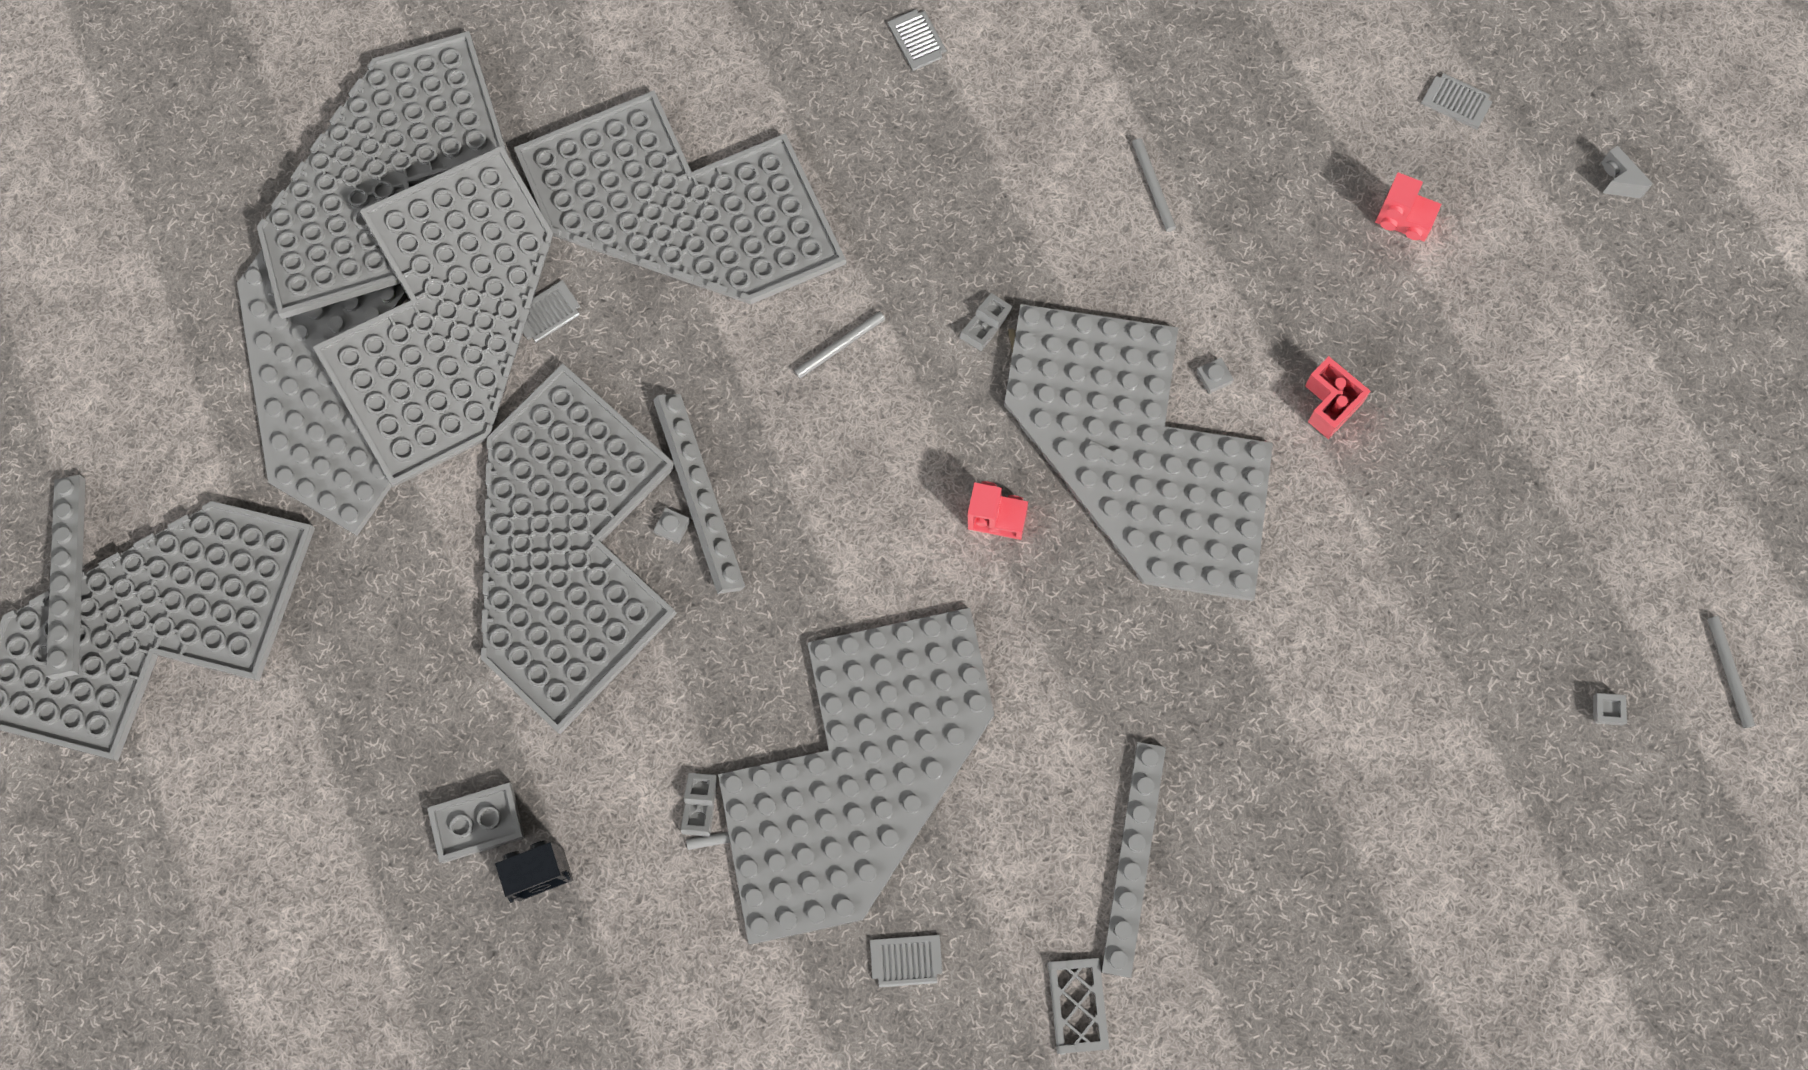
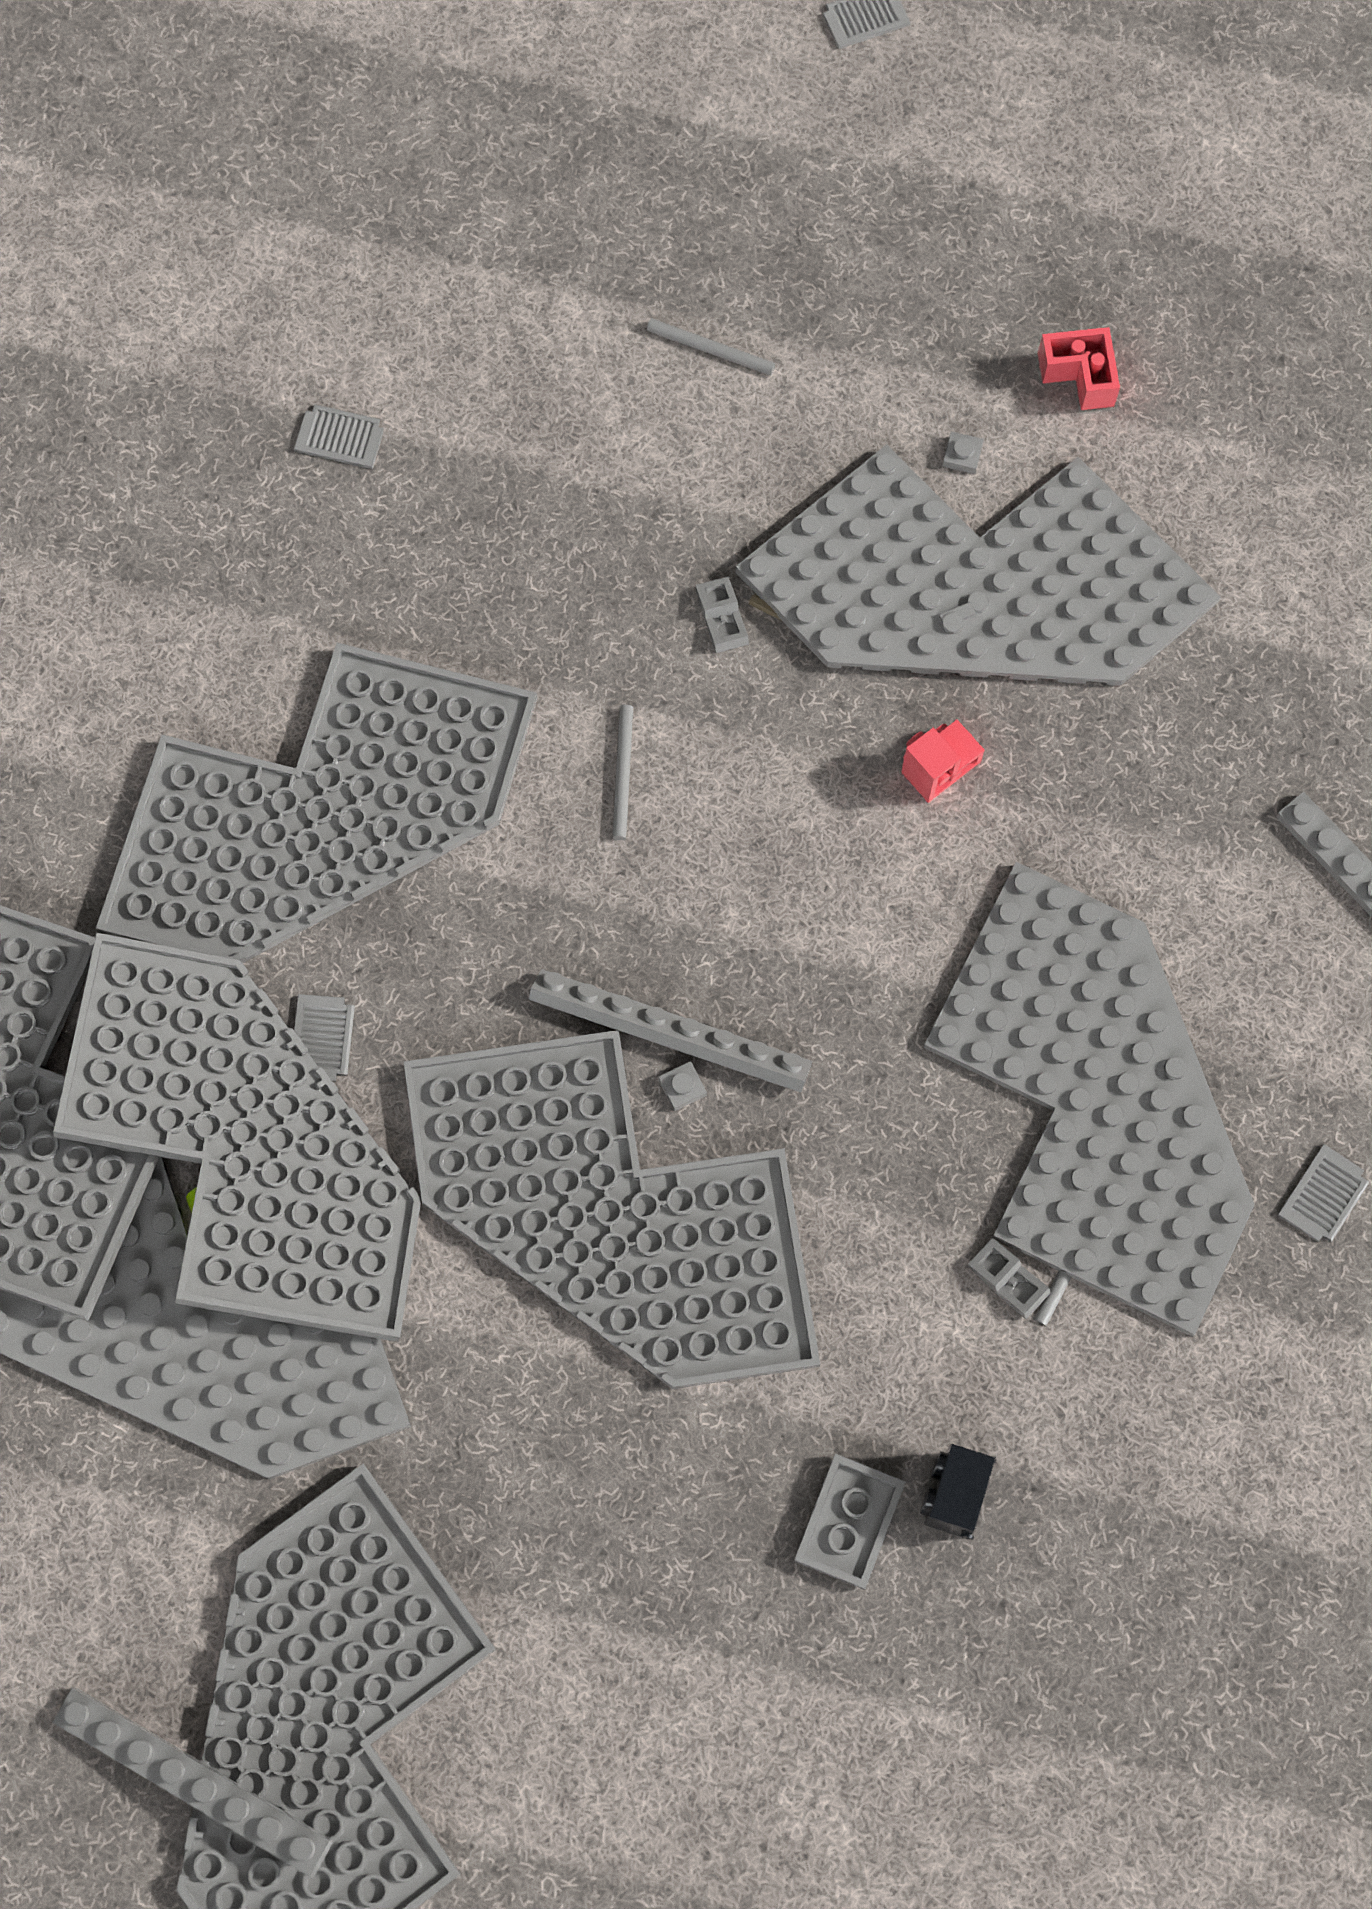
camera: 60 degrees left, 0 degrees up
(1406, 210) = (945, 148): coral brick -> none

